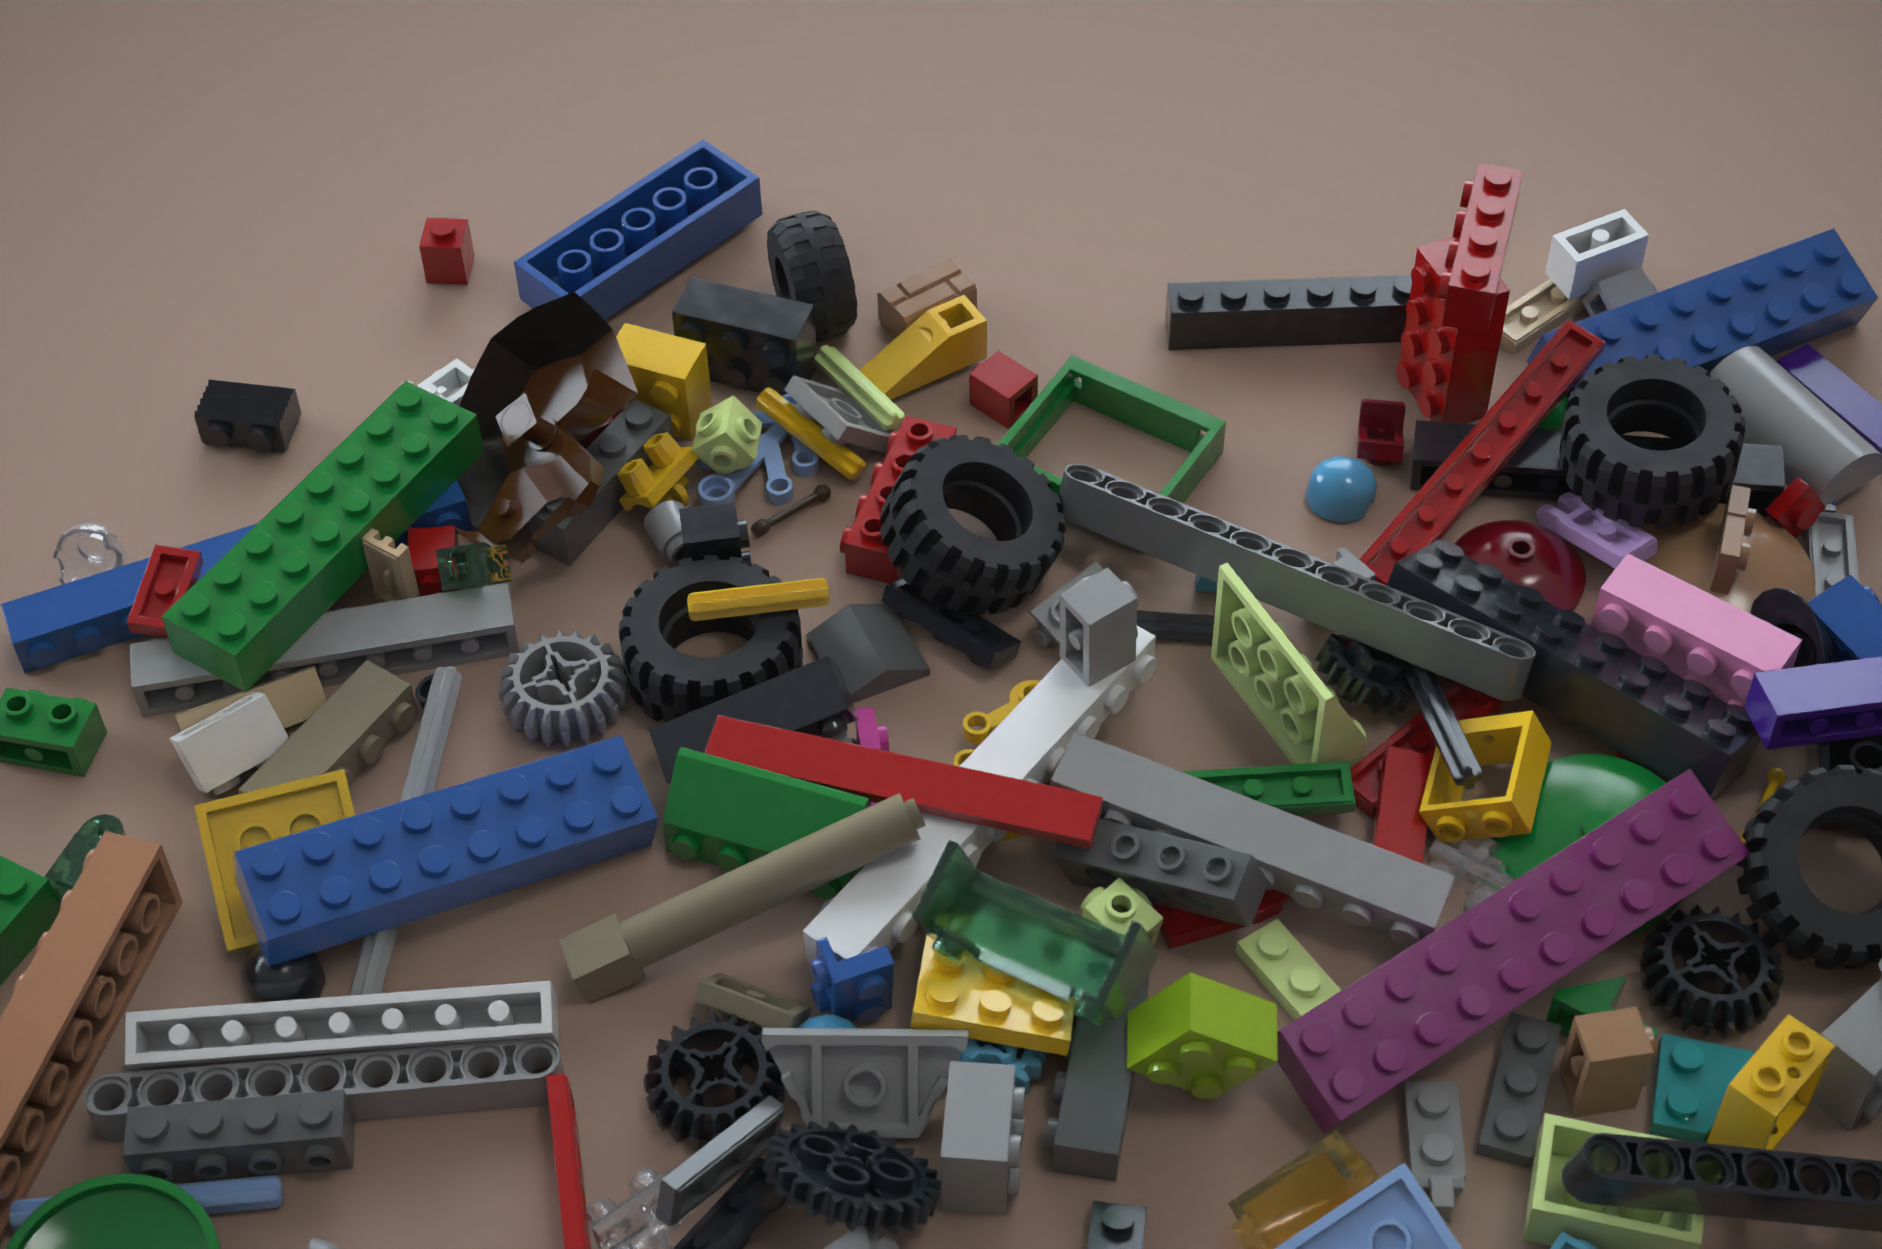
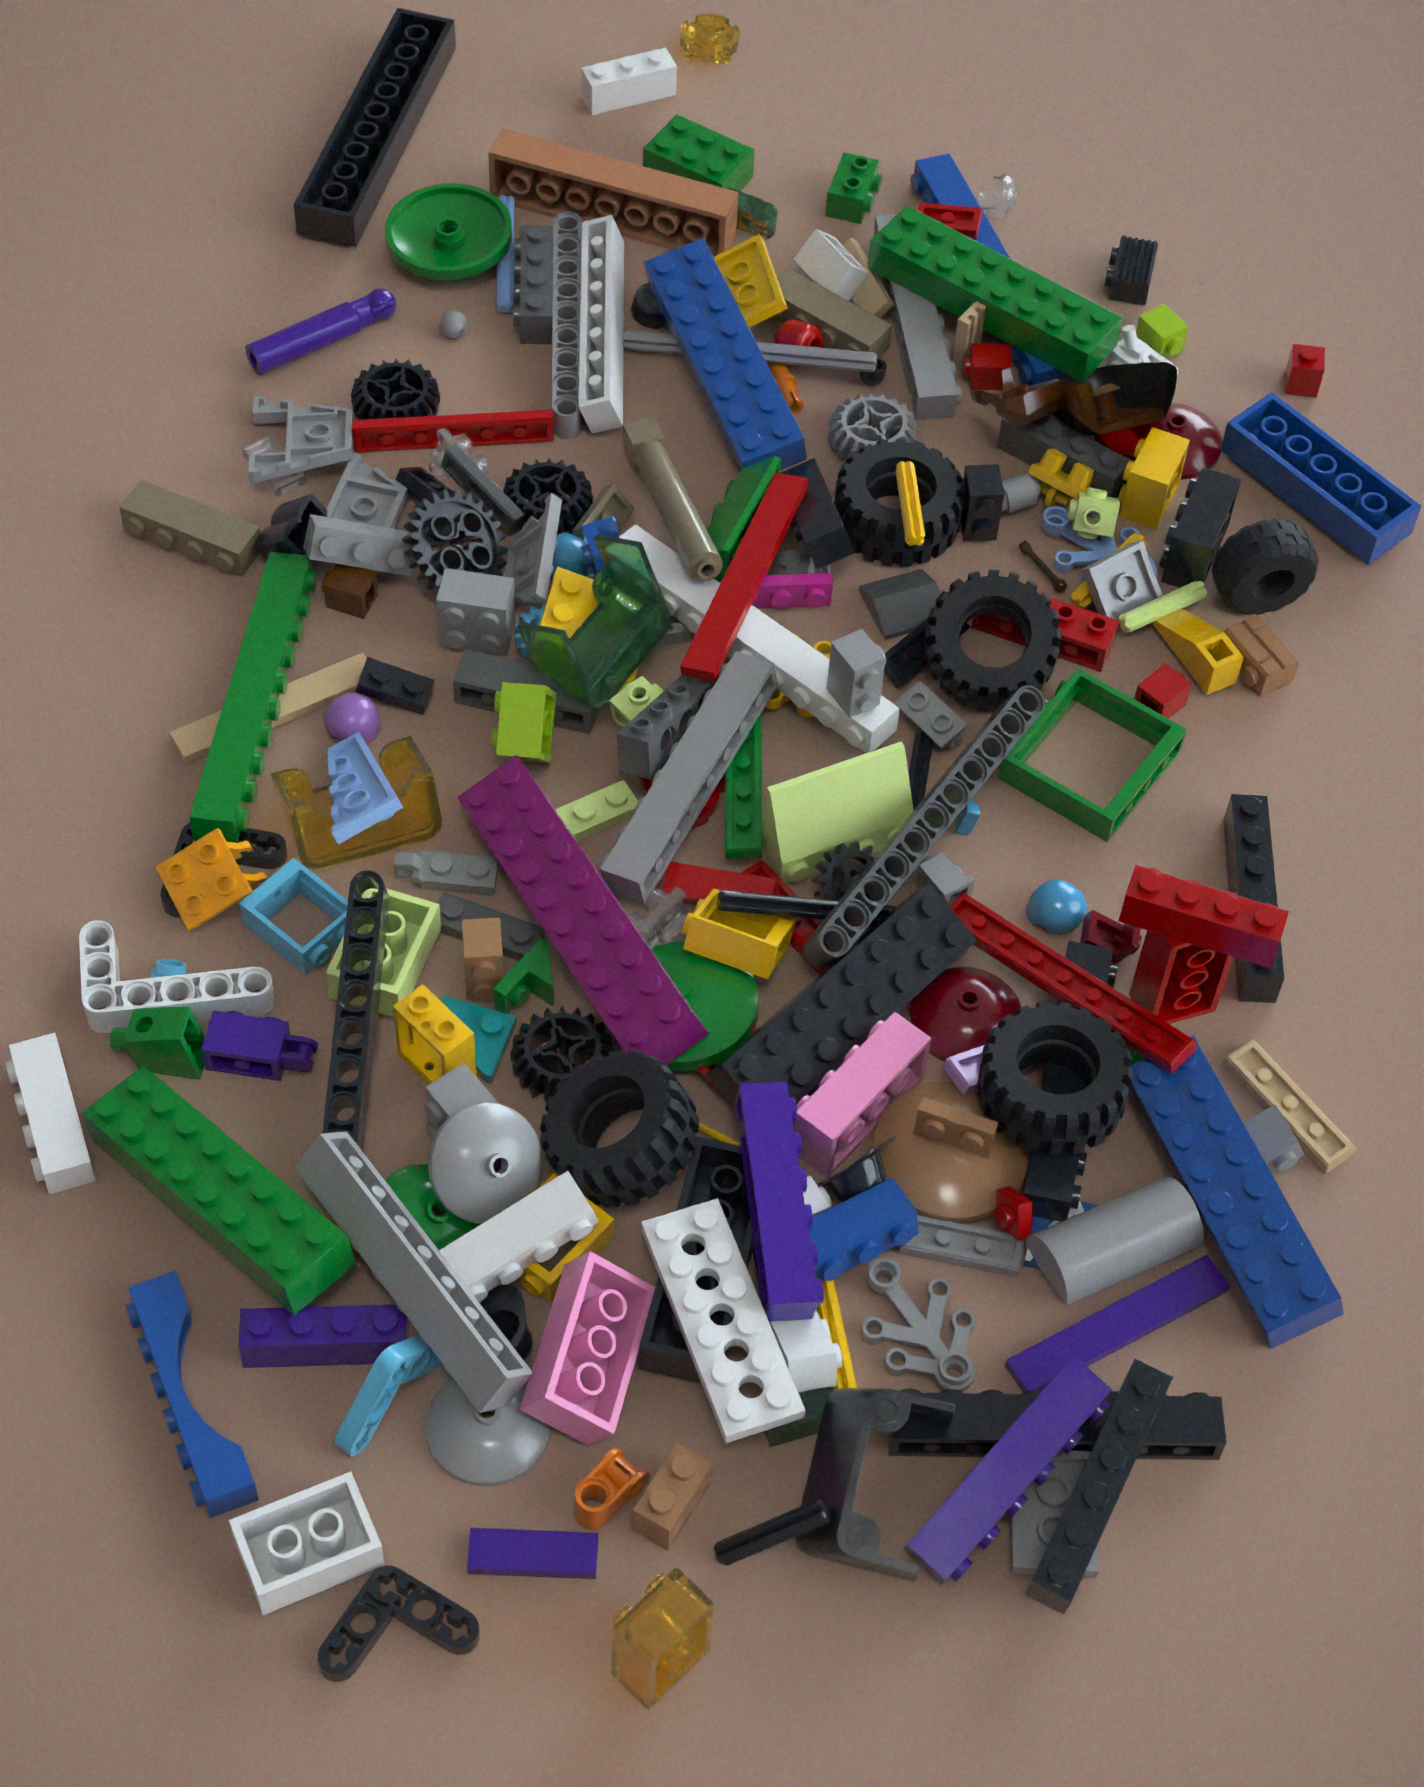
camera: 90 degrees right, 5 degrees up
(367, 383) = (1162, 331): none -> lime brick
(378, 778) = (799, 334): none -> red head
(476, 563) = (972, 372): clear green leg -> none
(1595, 252) = (1315, 1113): white brick -> none

